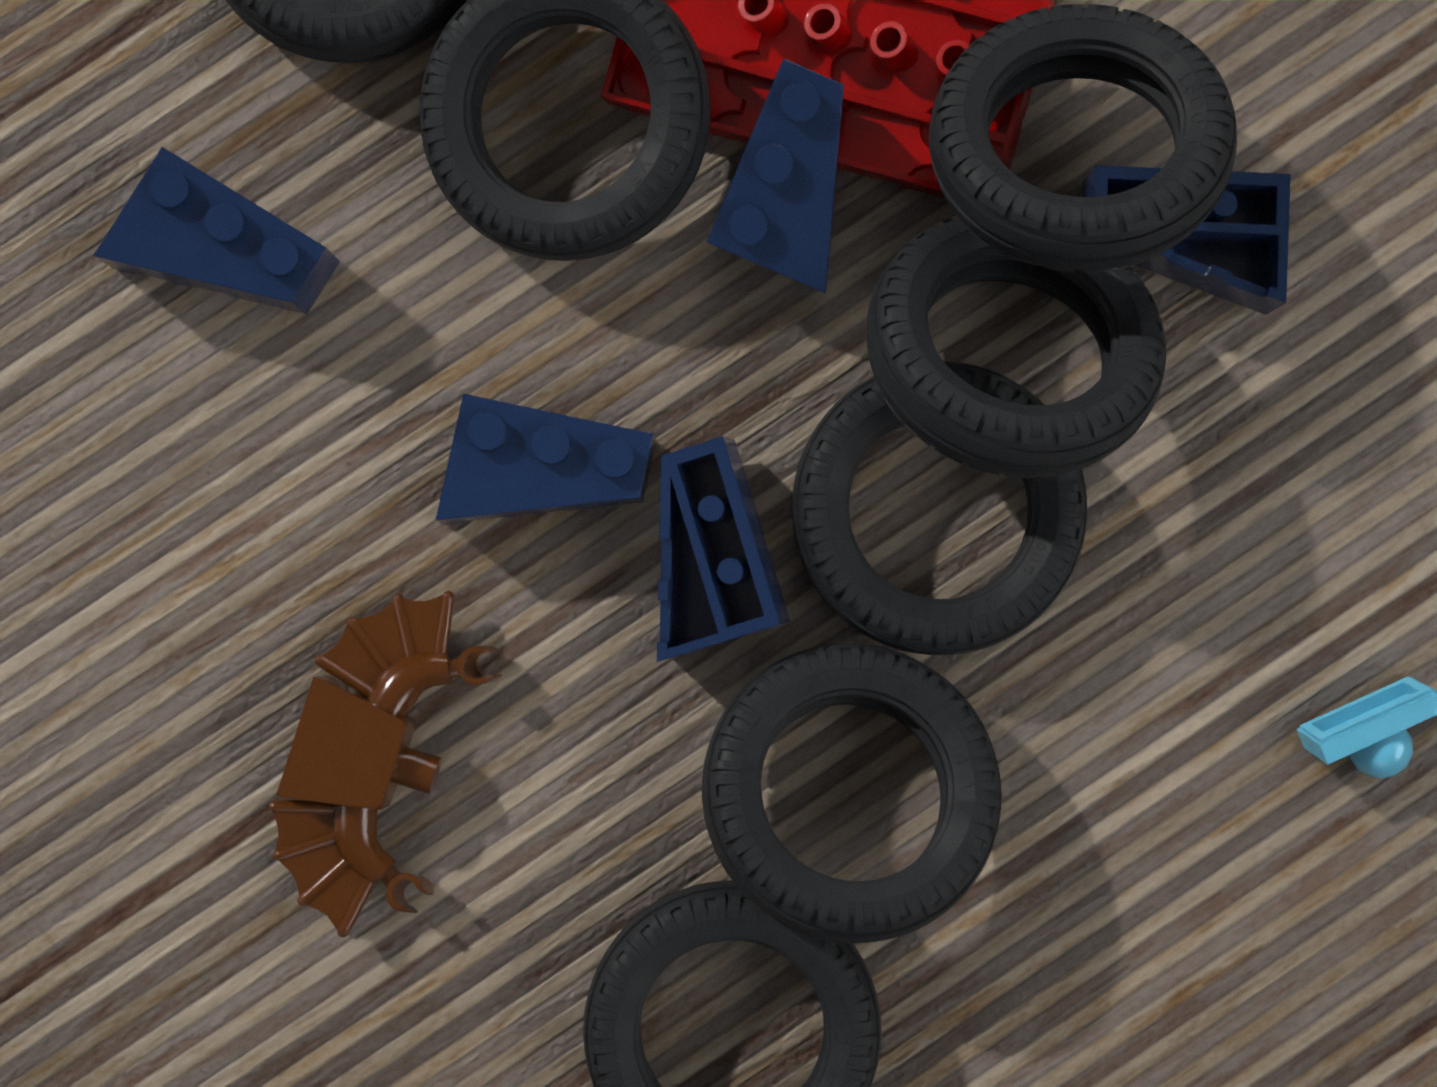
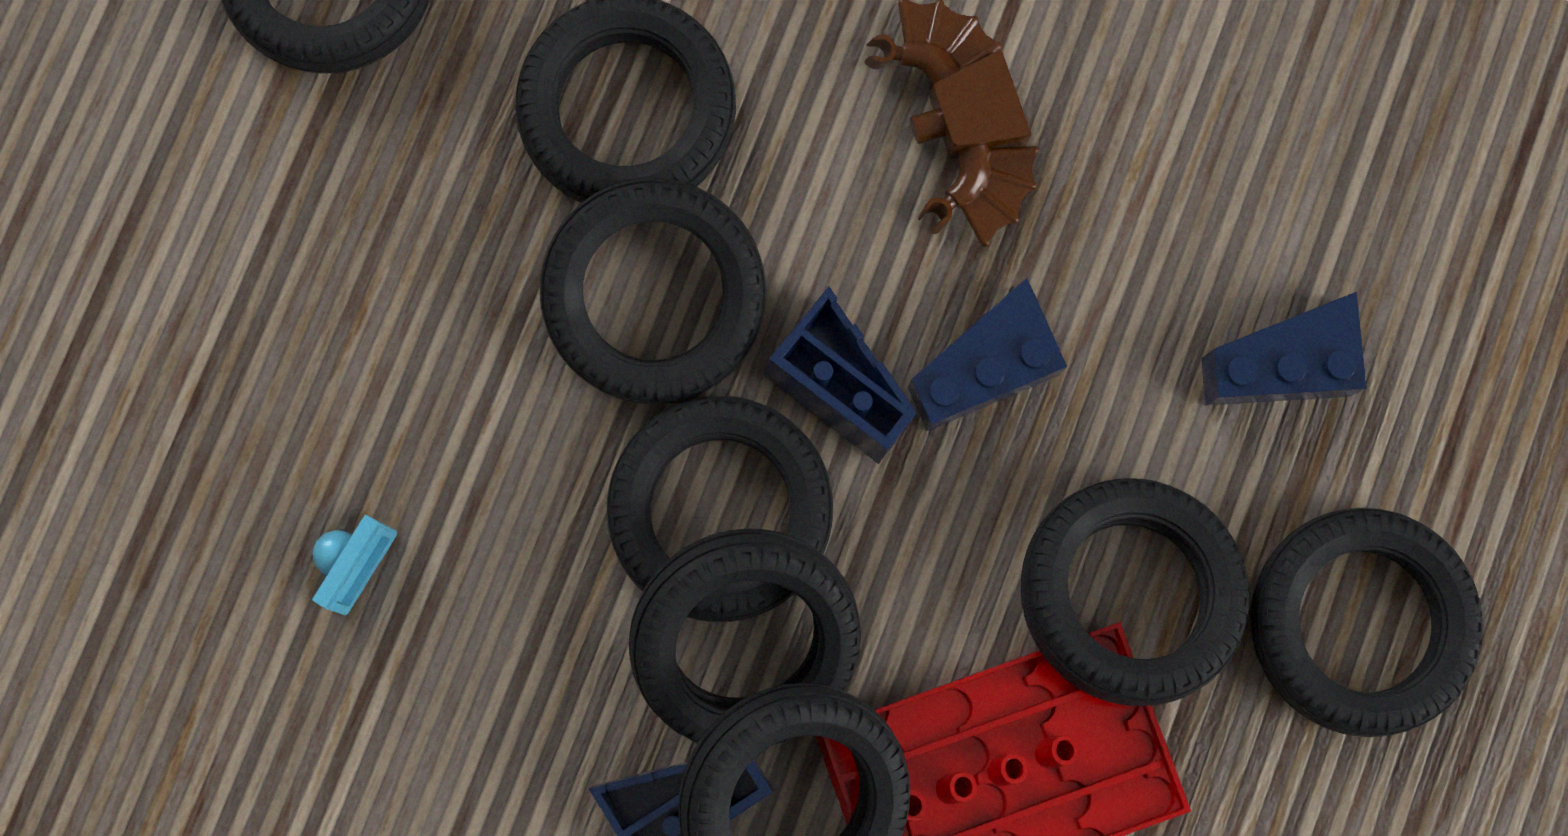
camera: 145 degrees right, 5 degrees down
(786, 180) = (963, 646): dark blue wedge -> none

